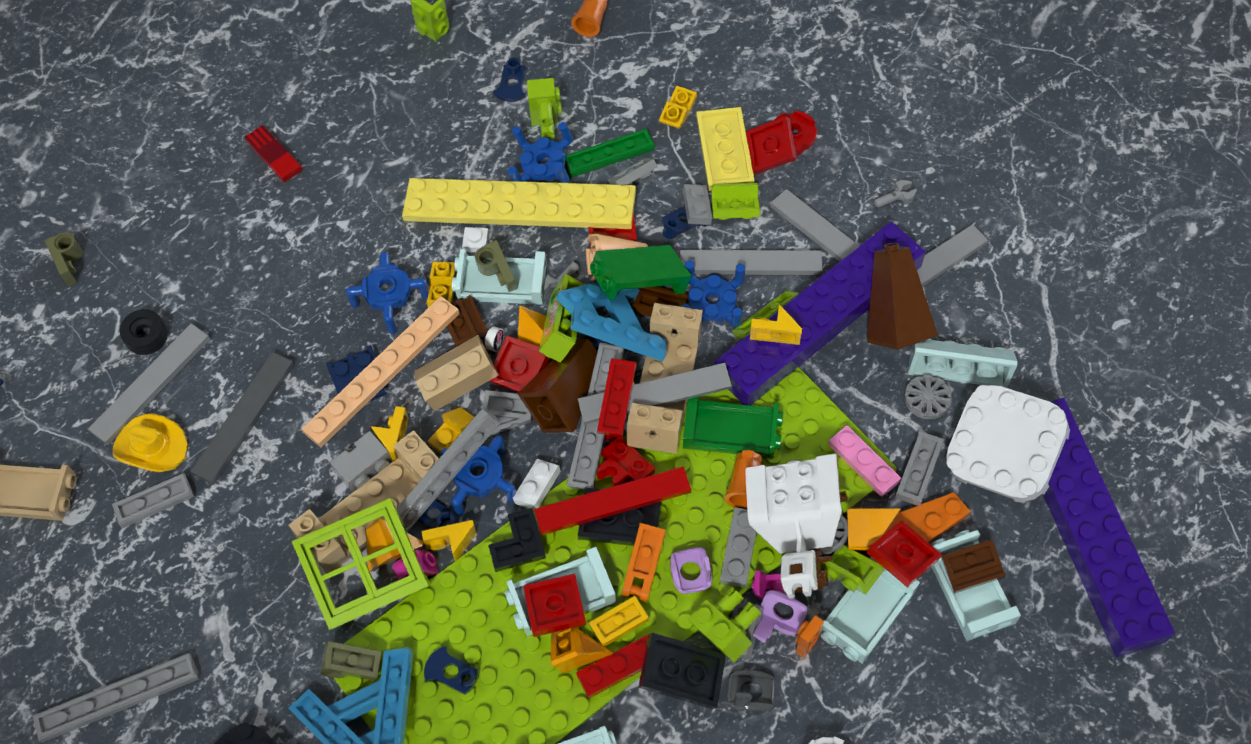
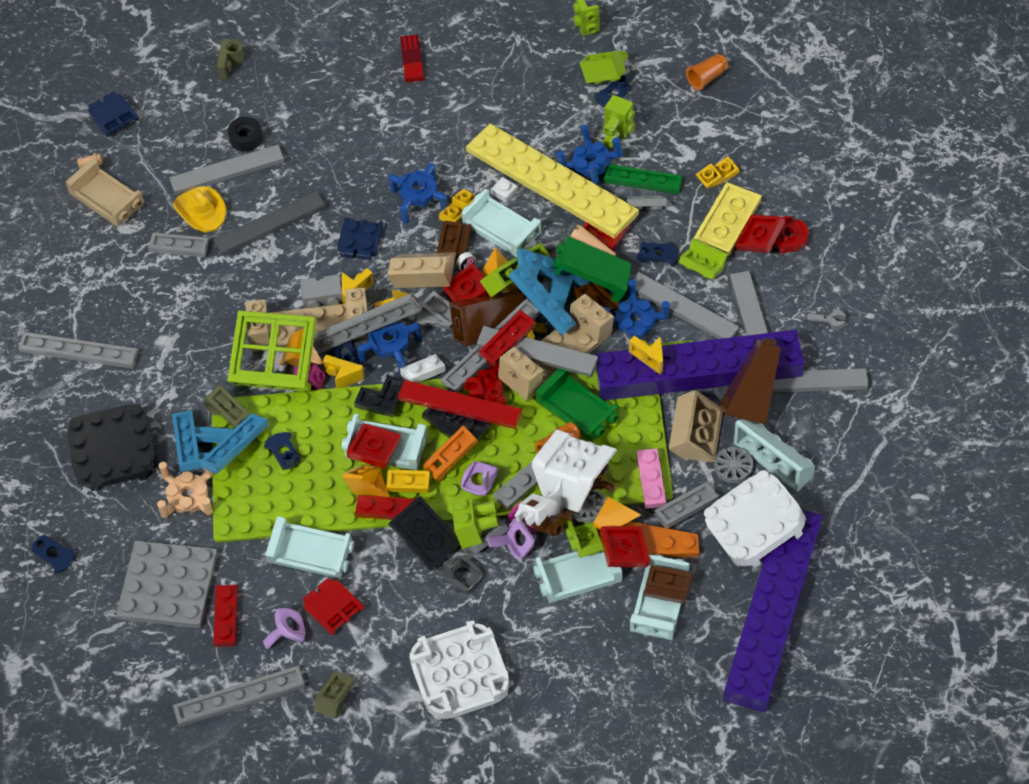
camera: 35 degrees right, 5 degrees down
(380, 372) = (375, 240): light nougat plate -> none
(488, 59) = (604, 66): none -> lime brick
(497, 266) = (503, 213): olive plate -> none
(697, 204) = (675, 247): light grey plate -> none
(808, 636) = (521, 560): orange plate -> none
(863, 380) = (696, 427): none -> tan slope

